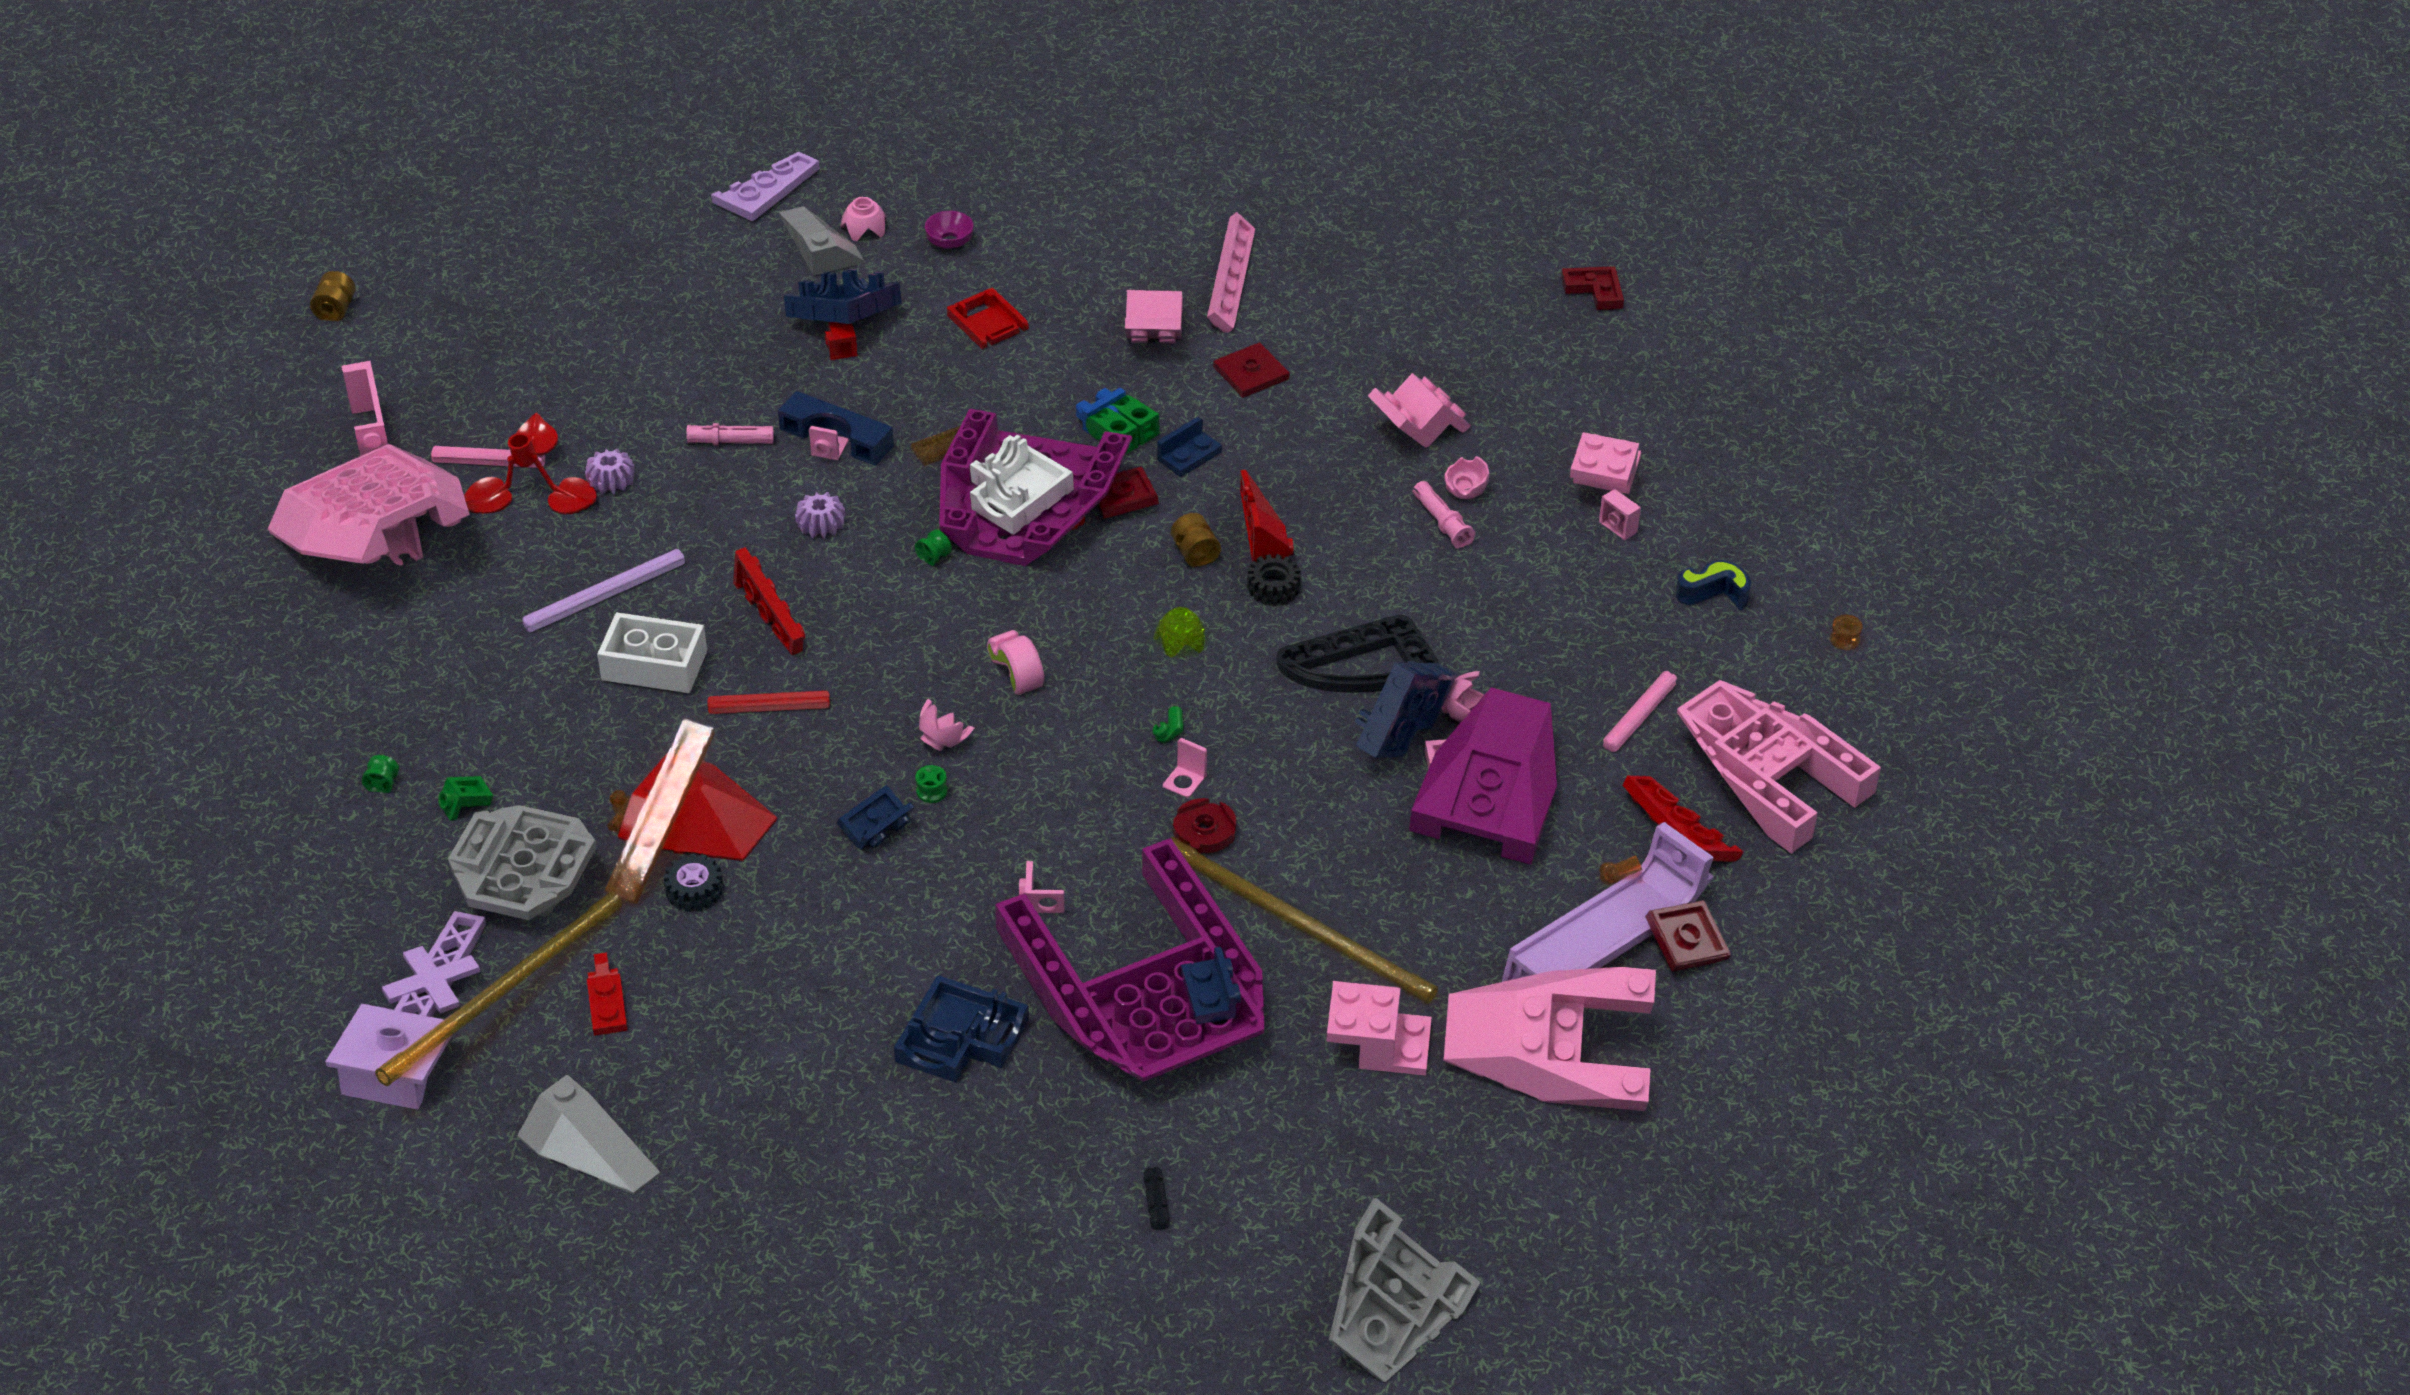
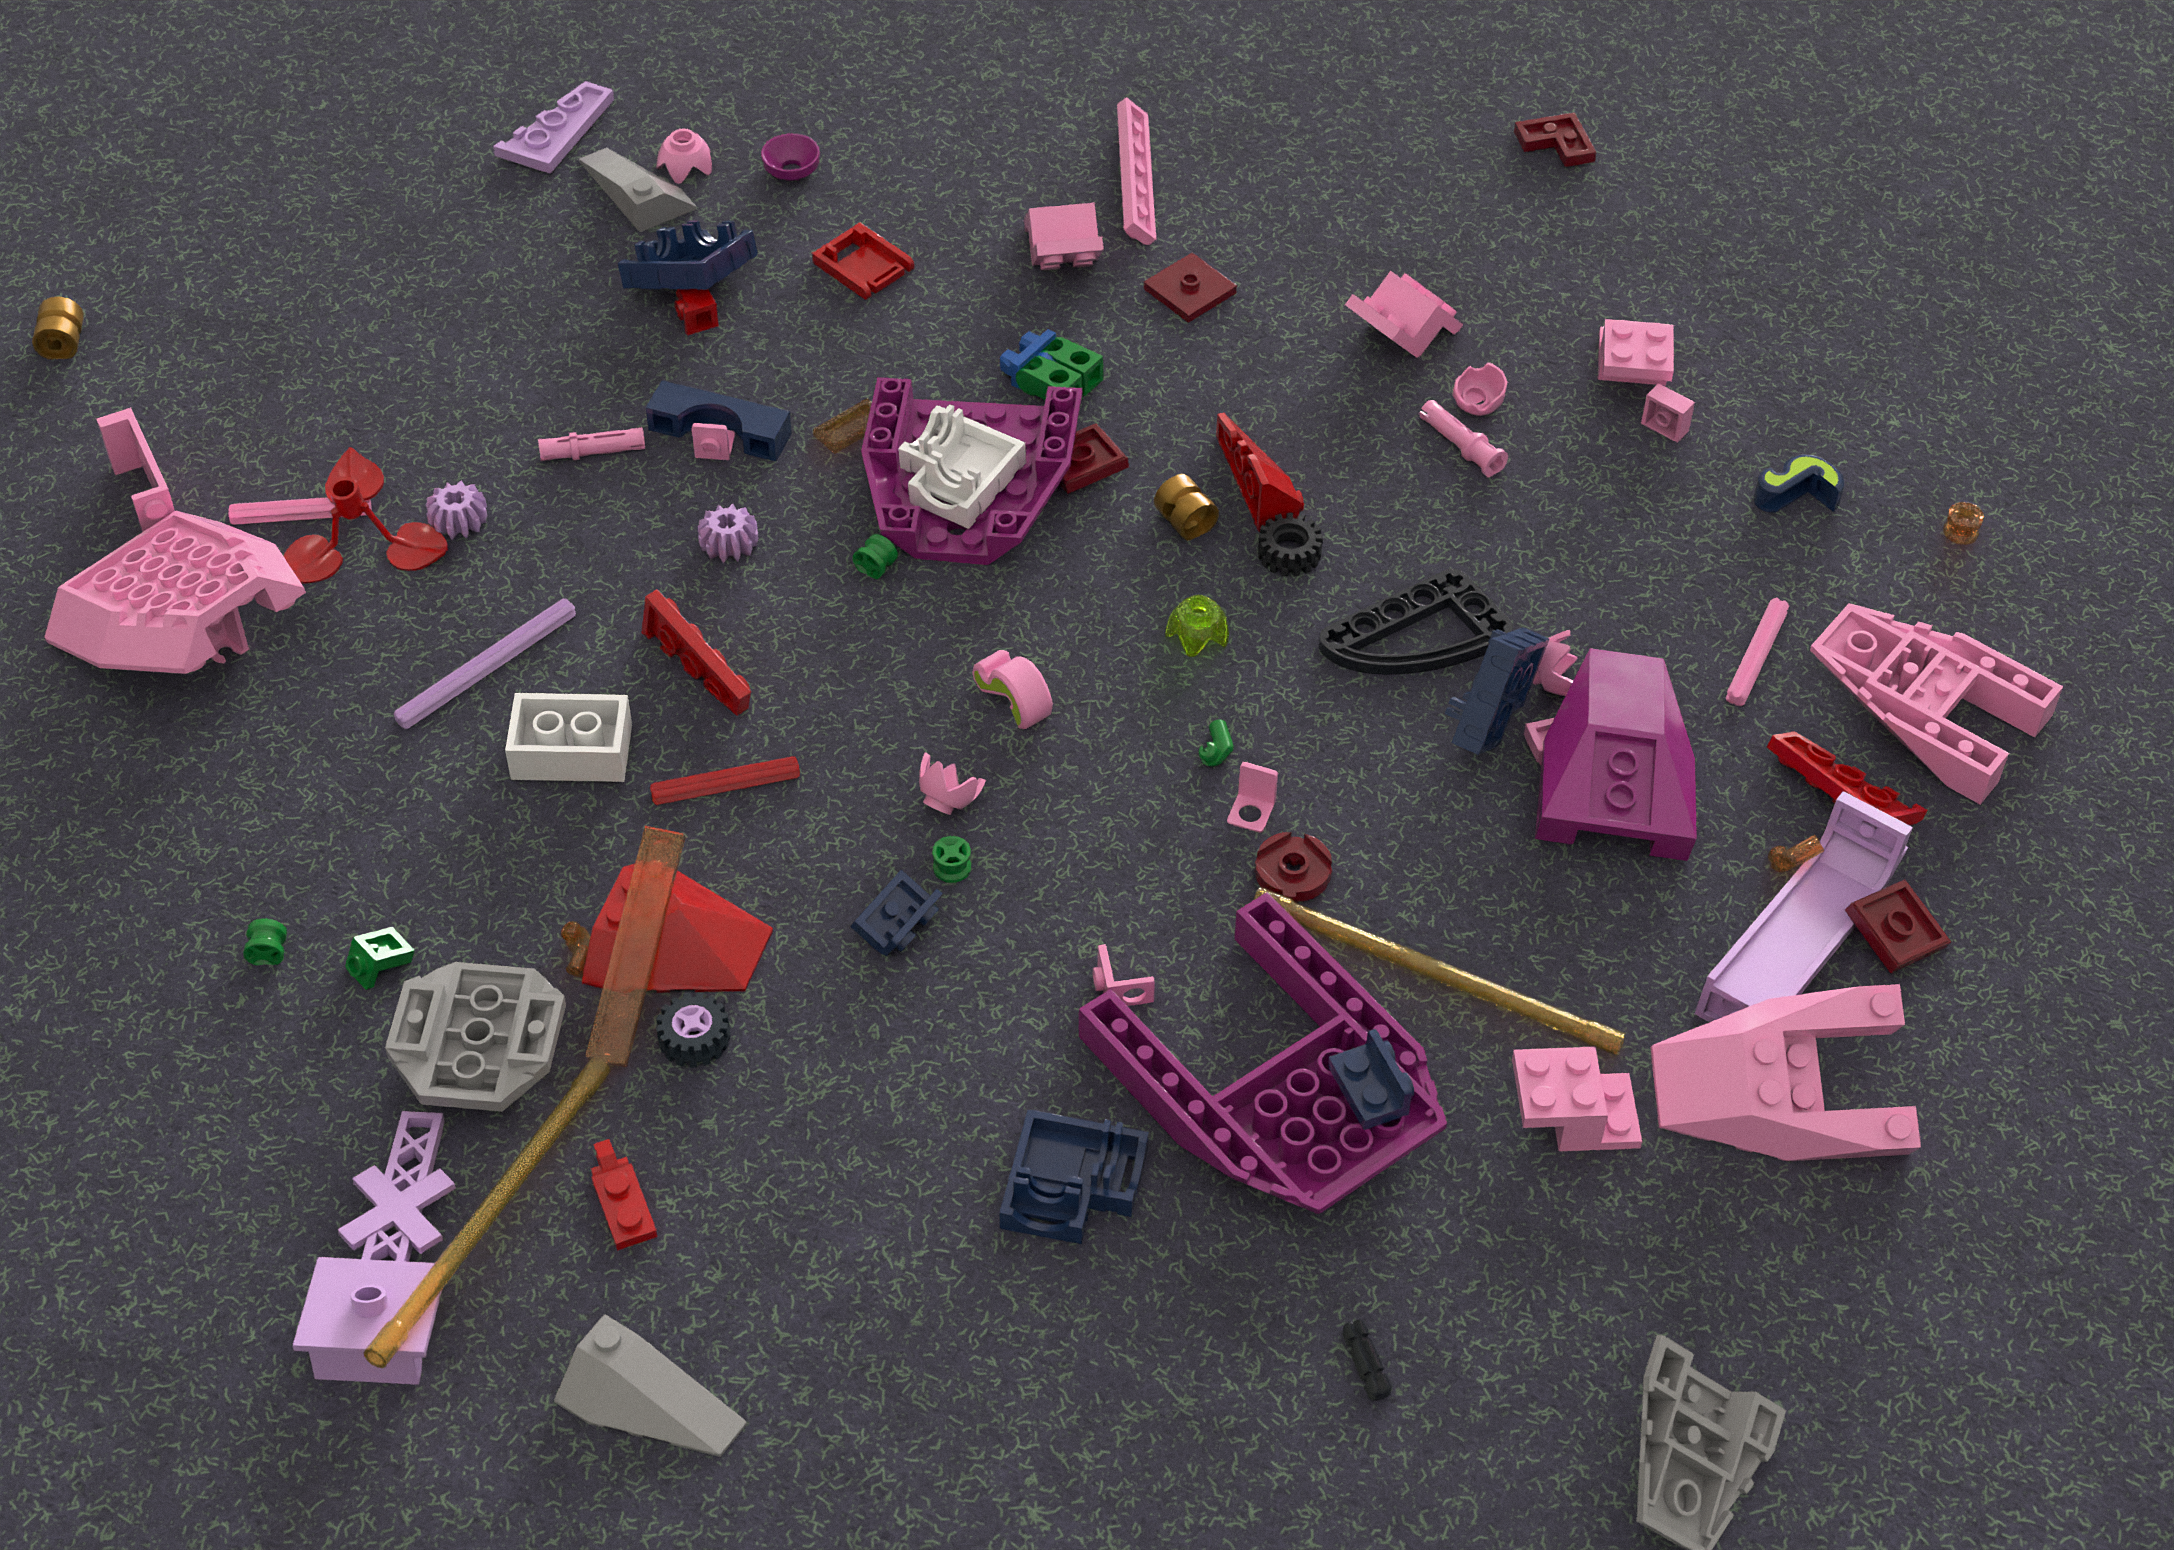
camera: 10 degrees left, 5 degrees up
(1187, 448) = (1143, 393): dark blue bracket -> none

